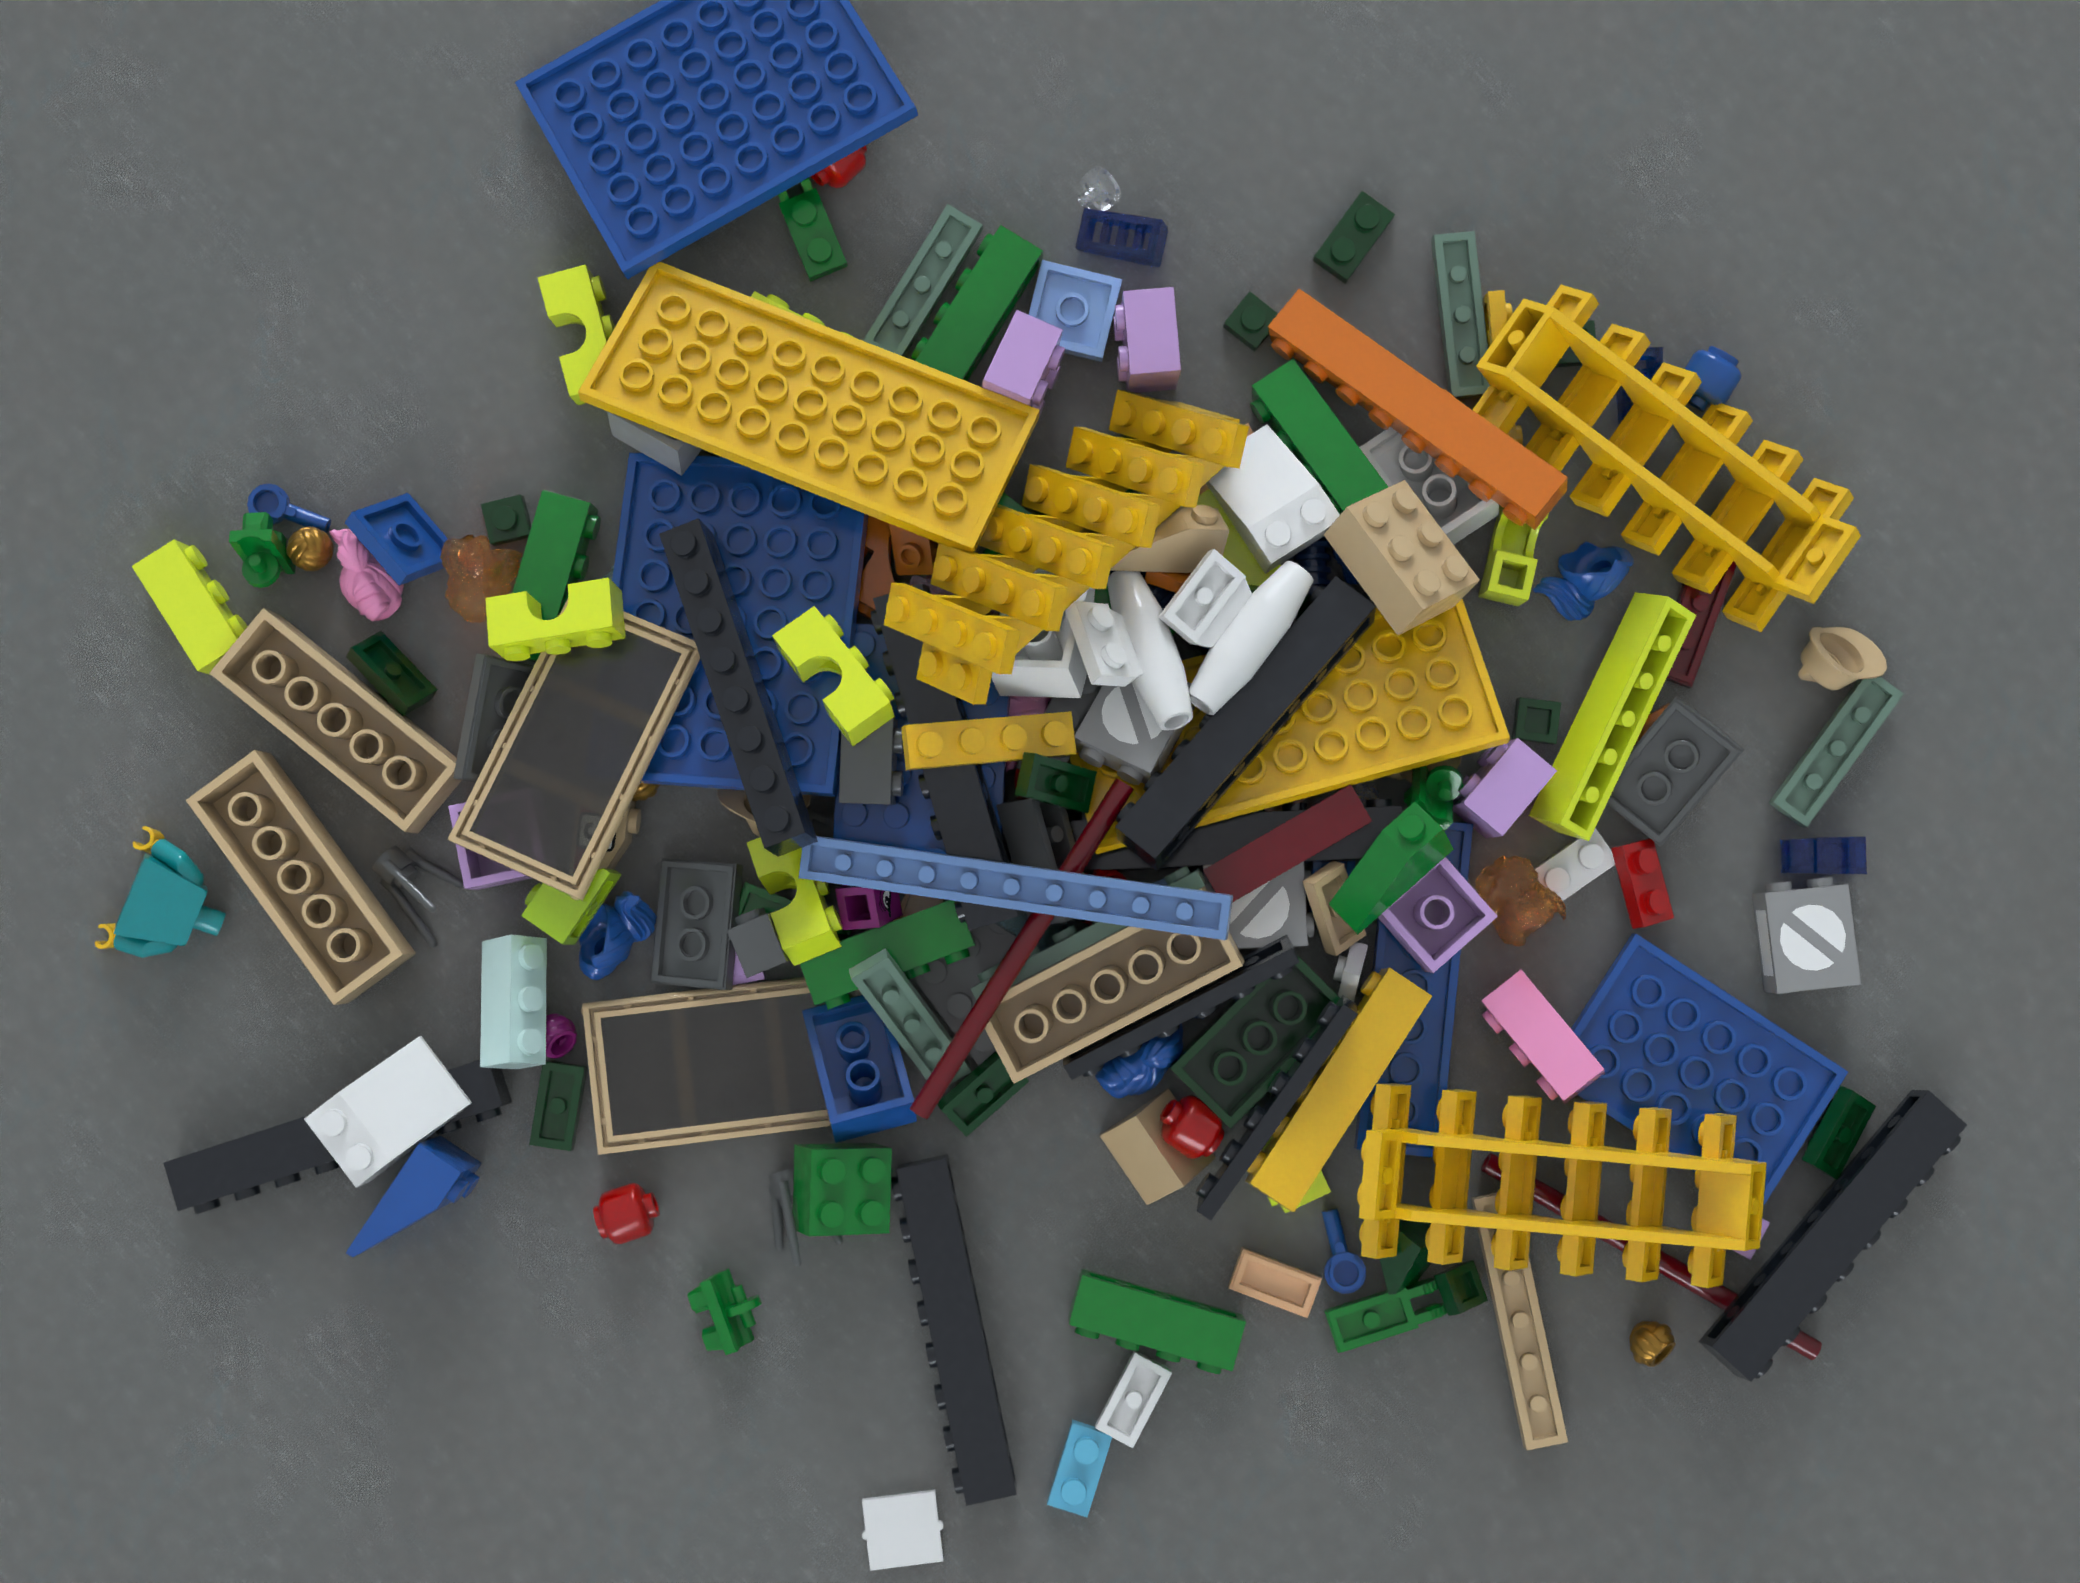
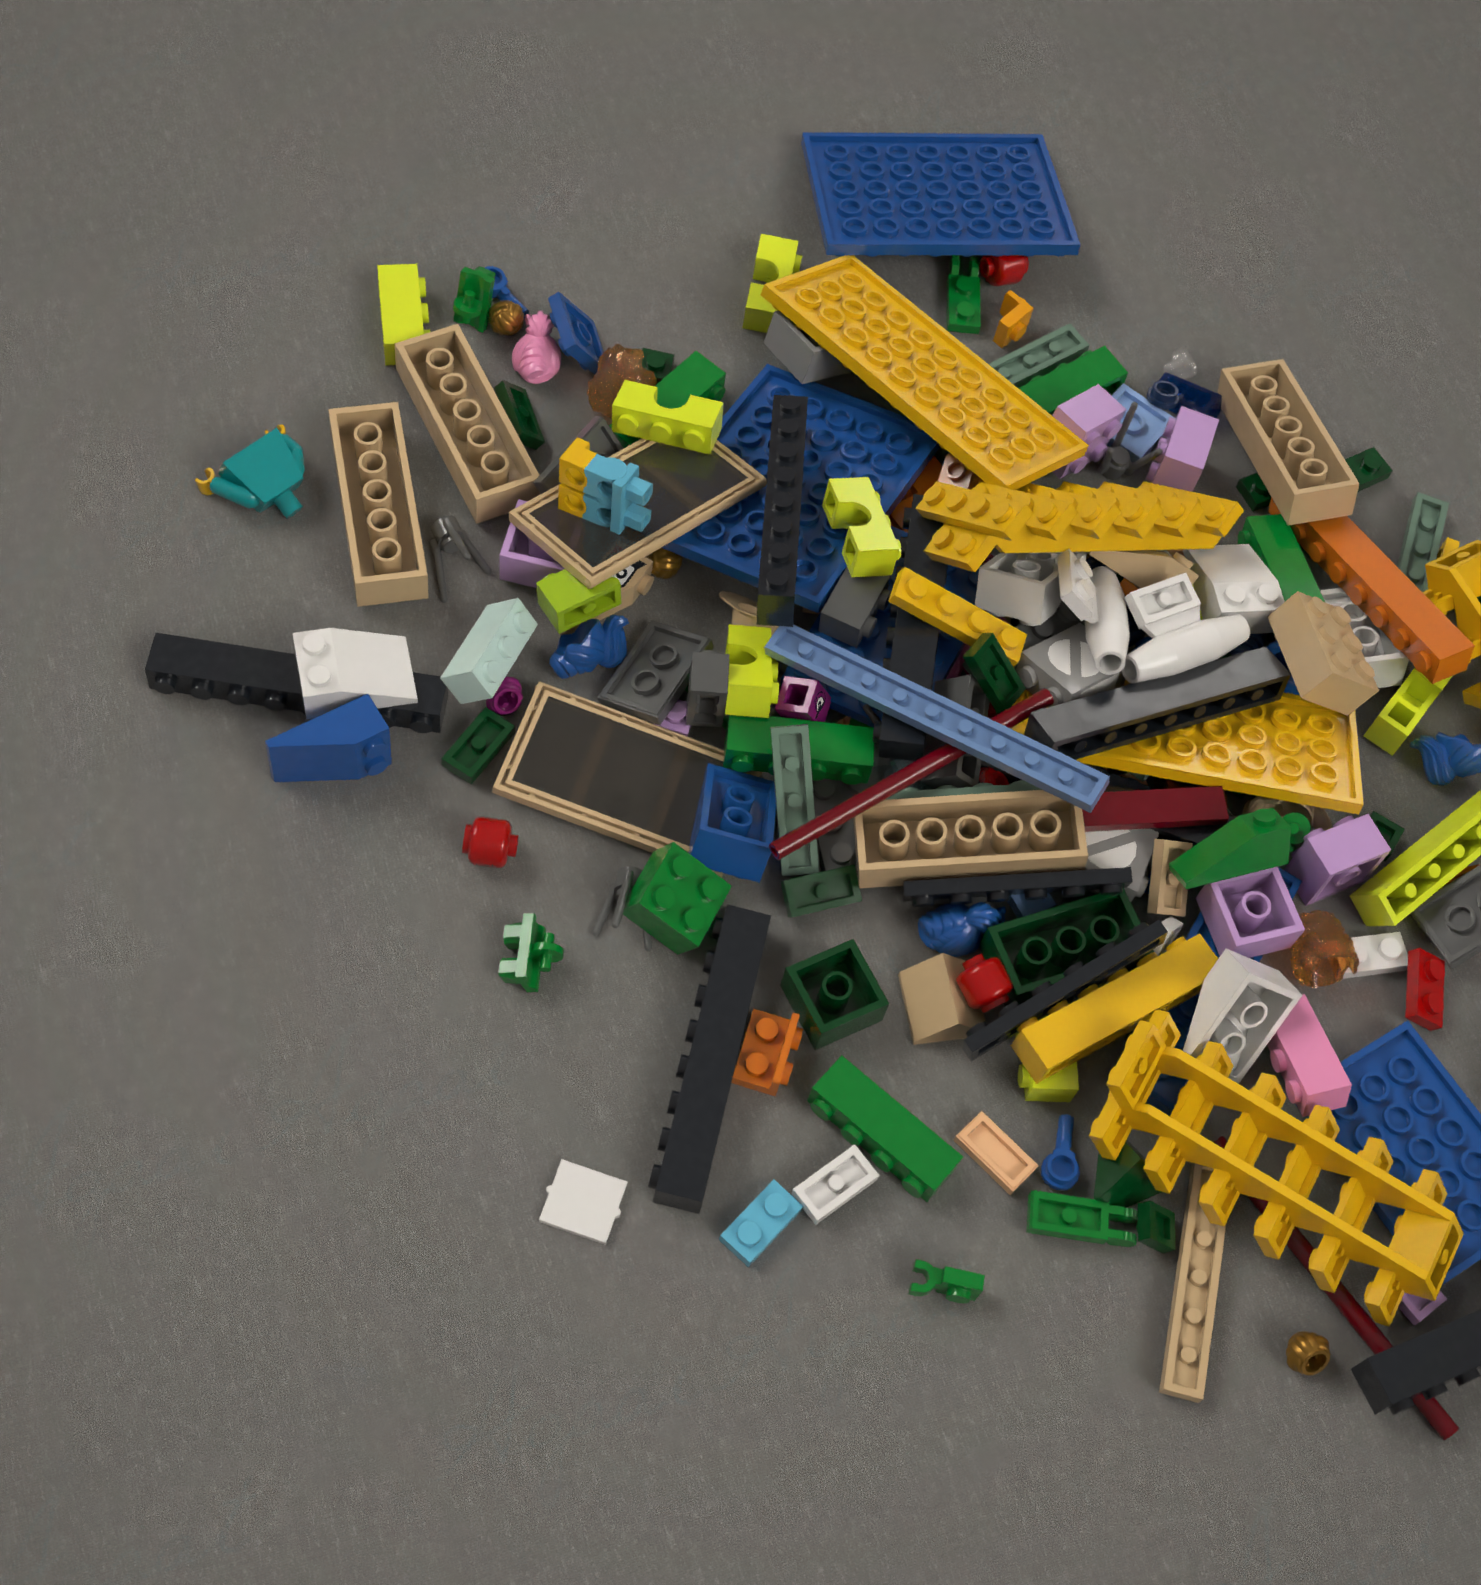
camera: 15 degrees right, 25 degrees down
(533, 781) = (602, 489): none -> medium azure hips
(884, 242) = (1015, 319): none -> light orange bracket
(1005, 1292) = (765, 1052): none -> orange bracket
(1046, 1209) = (834, 994): none -> dark green brick
(1076, 372) = (1117, 459): none -> dark grey plant
(1095, 246) = (1163, 395): none -> dark blue plate
(1260, 264) = (1287, 442): none -> tan brick
(1290, 1443) = (956, 1284): none -> green plate
(1461, 1034) = (1240, 1008): none -> white slope

